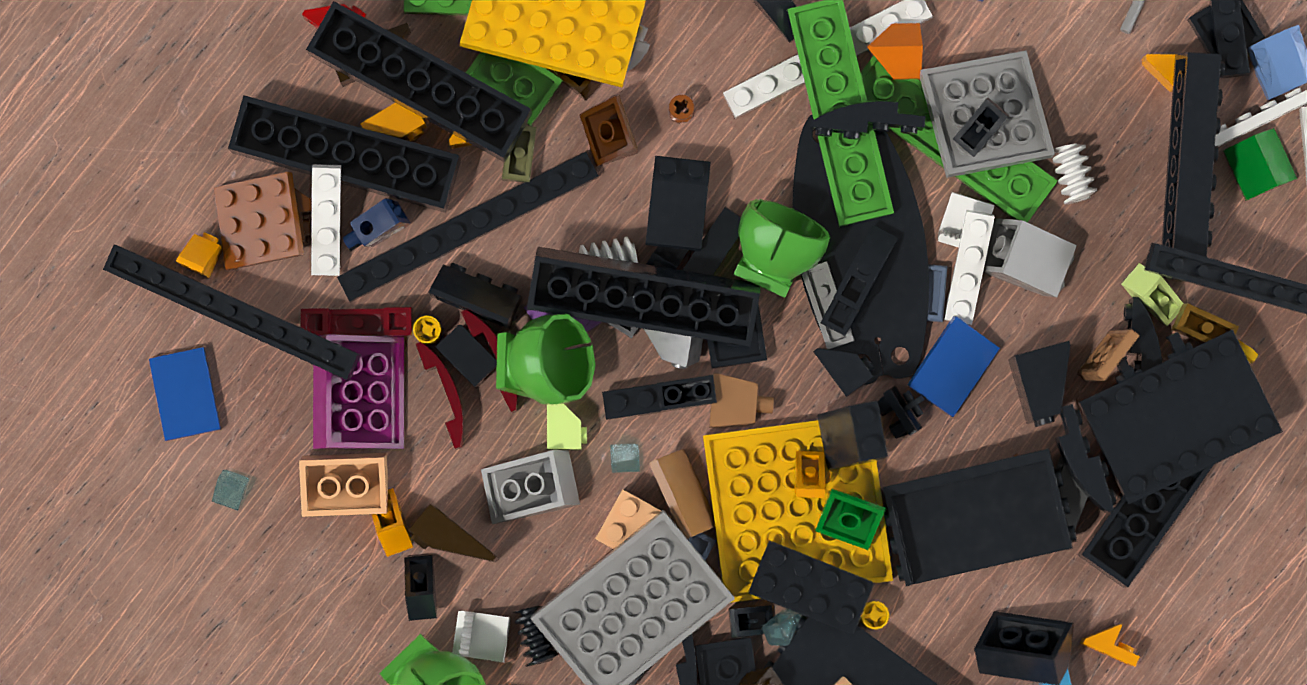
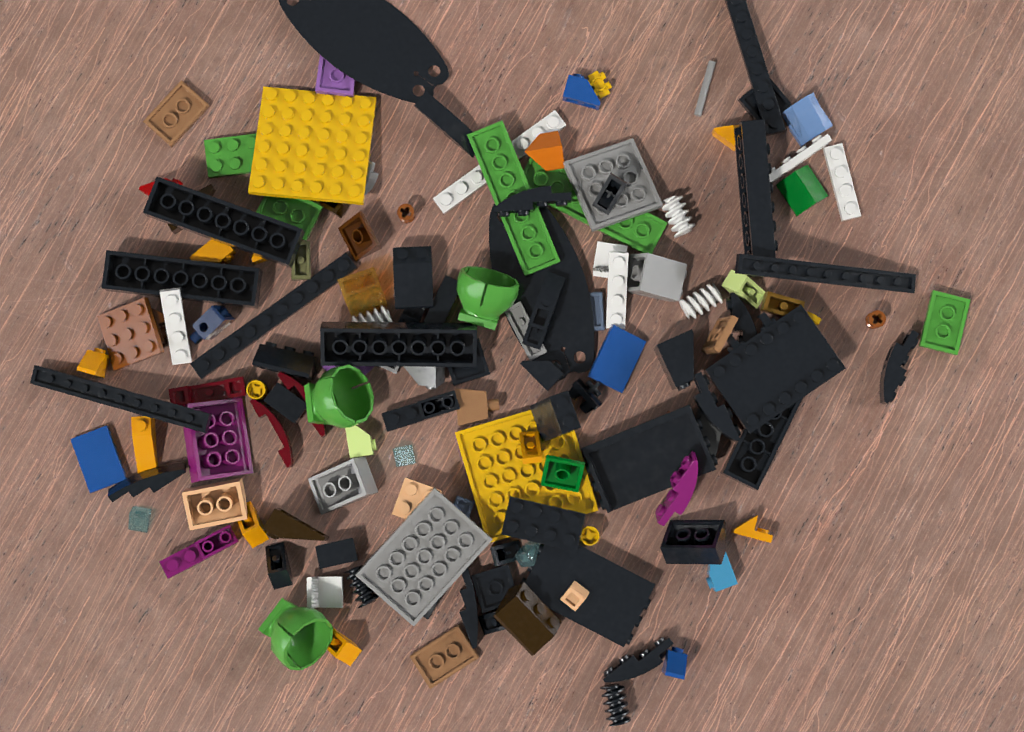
camera: 10 degrees left, 0 degrees up
(254, 384) = (144, 442): none -> light orange slope
(260, 434) = (153, 478): none -> black slope
(309, 549) = (198, 551): none -> magenta slope
(507, 582) = (336, 553): none -> black panel
(601, 212) = (362, 292): none -> clear yellow slope
(683, 493) = (447, 473): medium nougat tile -> none
(1021, 565) = (683, 486): none -> magenta slope
(1088, 302) = (701, 301): none -> white piece

